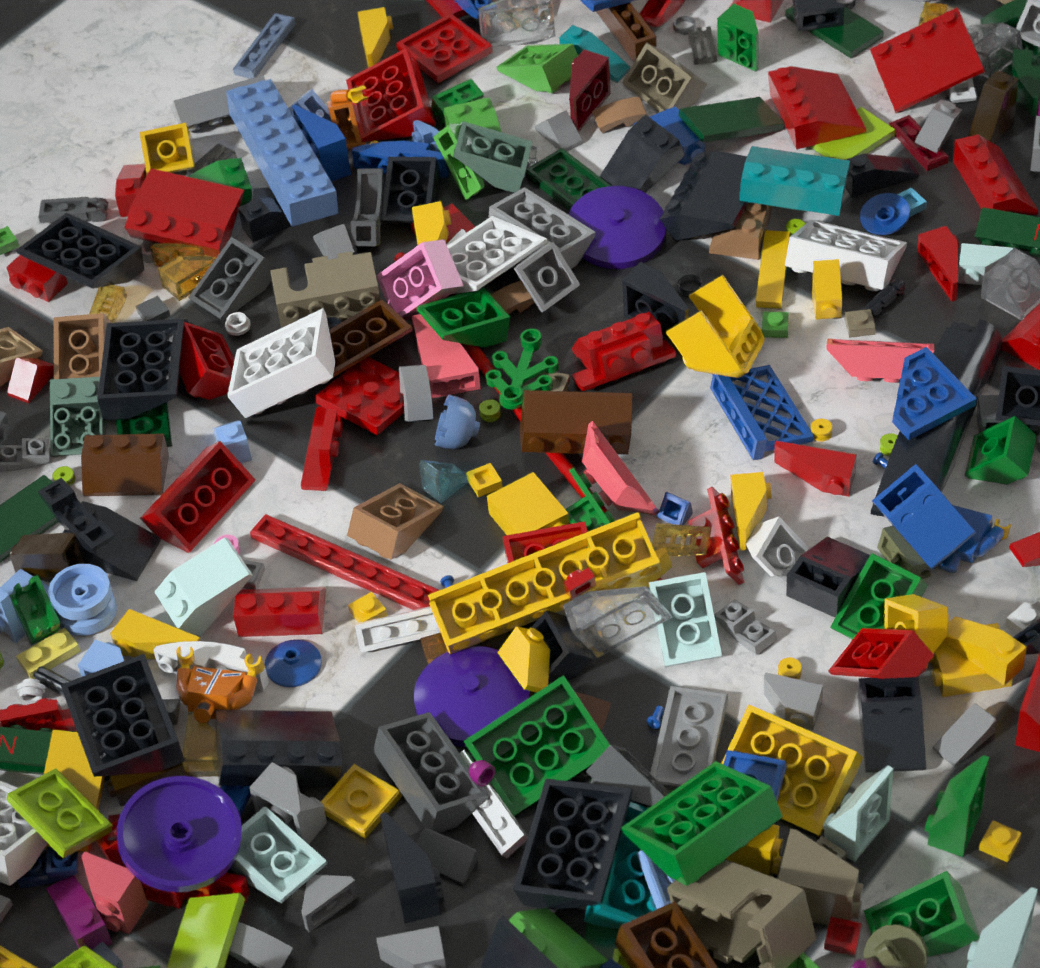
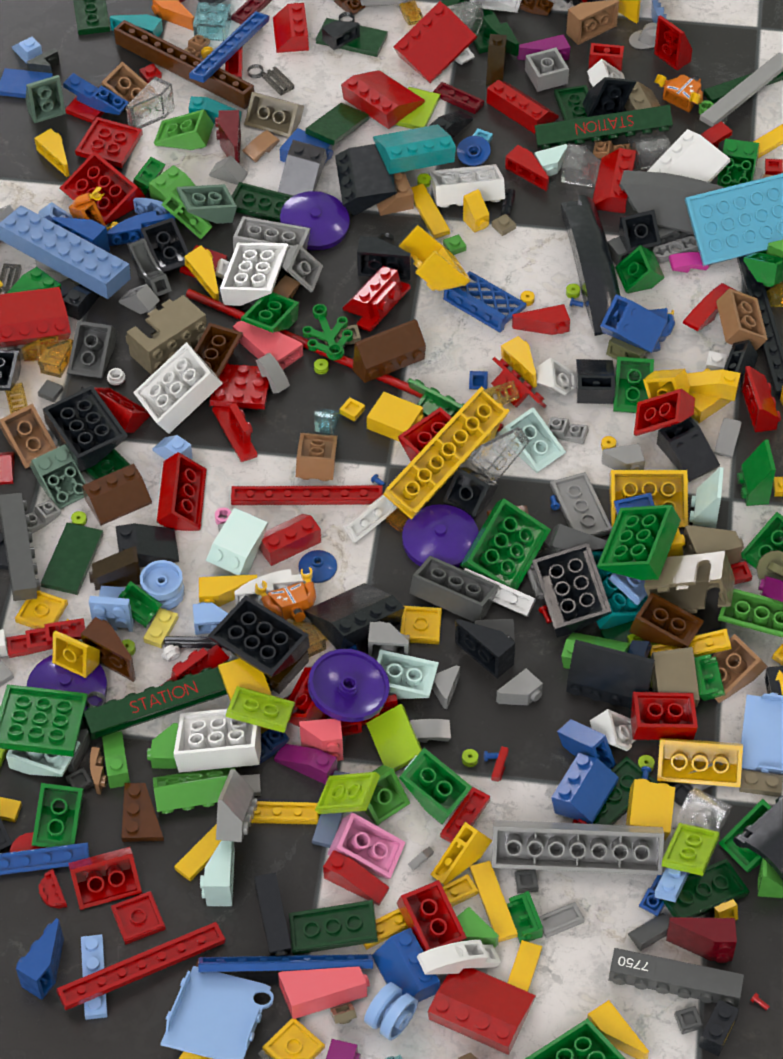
camera: 35 degrees left, 5 degrees up
(75, 517) = (125, 538): black slope -> none
(367, 608) = (339, 515): yellow plate -> none
(419, 278) = (229, 299): bright pink brick -> none
(456, 424) = (310, 382): medium blue cylinder -> none
(481, 772) = (488, 574): magenta hinge -> none
(527, 658) = (463, 500): yellow slope -> none
(579, 582) = (473, 441): red plate -> none
(613, 476) = (433, 373): coral wedge -> none
(738, 37) = (306, 67): green slope -> none
(873, 358) = (536, 241): coral wedge -> none
(928, 395) = (588, 251): blue plate -> none
(938, 125) = (468, 82): light grey slope -> none

